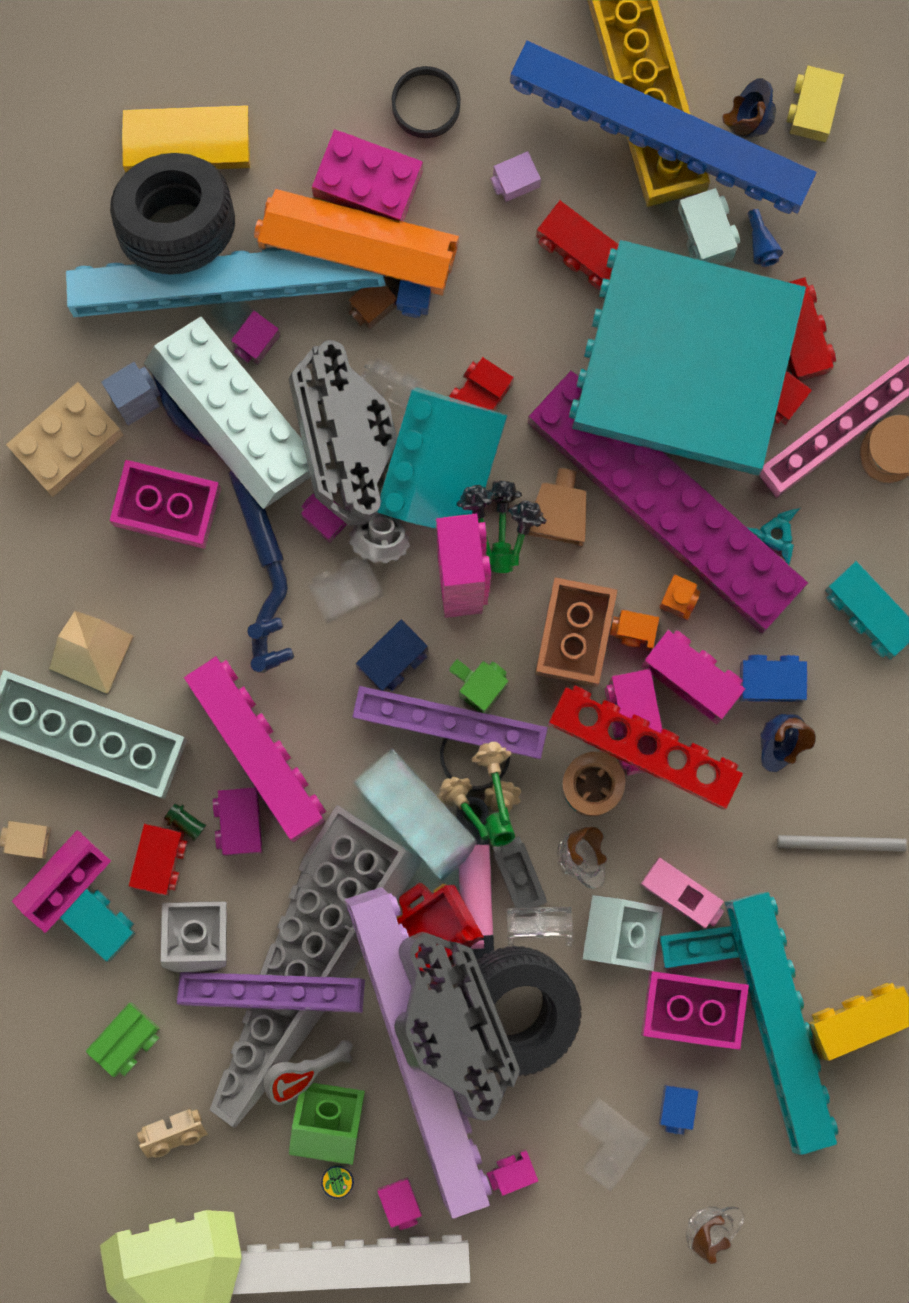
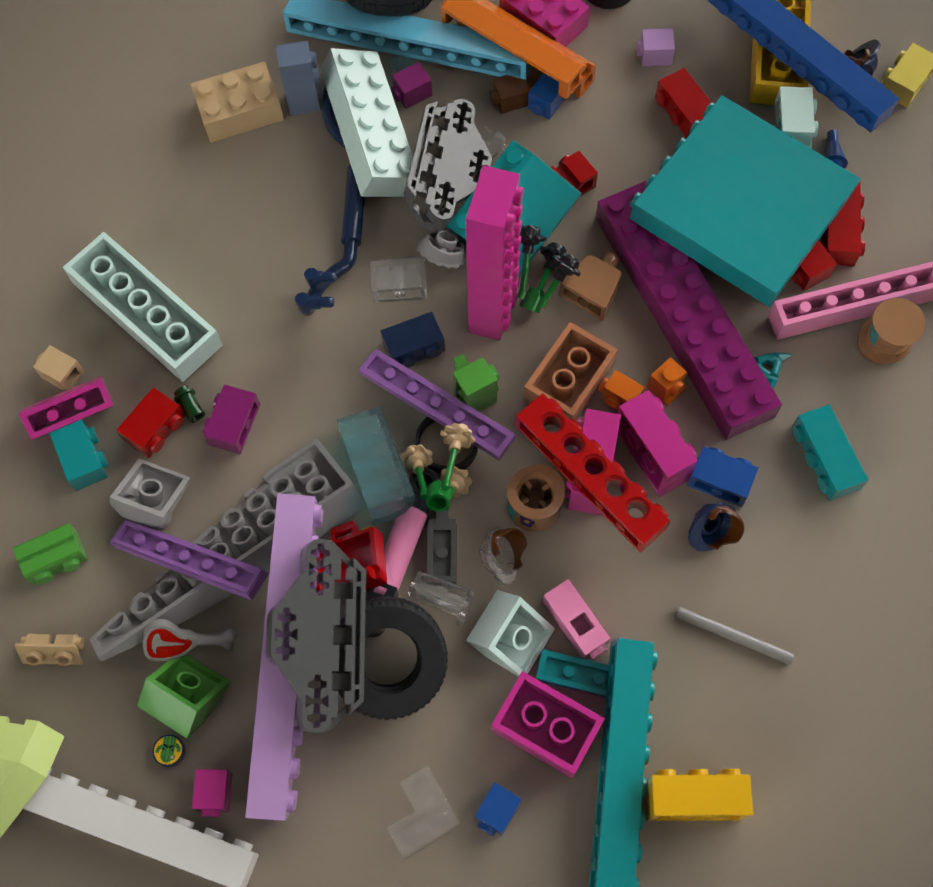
camera: 25 degrees right, 15 degrees down
(90, 651) = (181, 253): tan slope -> none
(165, 504) = (288, 168): dark pink brick -> none
(254, 749) = (270, 365): dark pink brick -> none
(322, 519) = (405, 224): magenta brick -> none
(512, 1173) = (324, 807): dark pink brick -> none

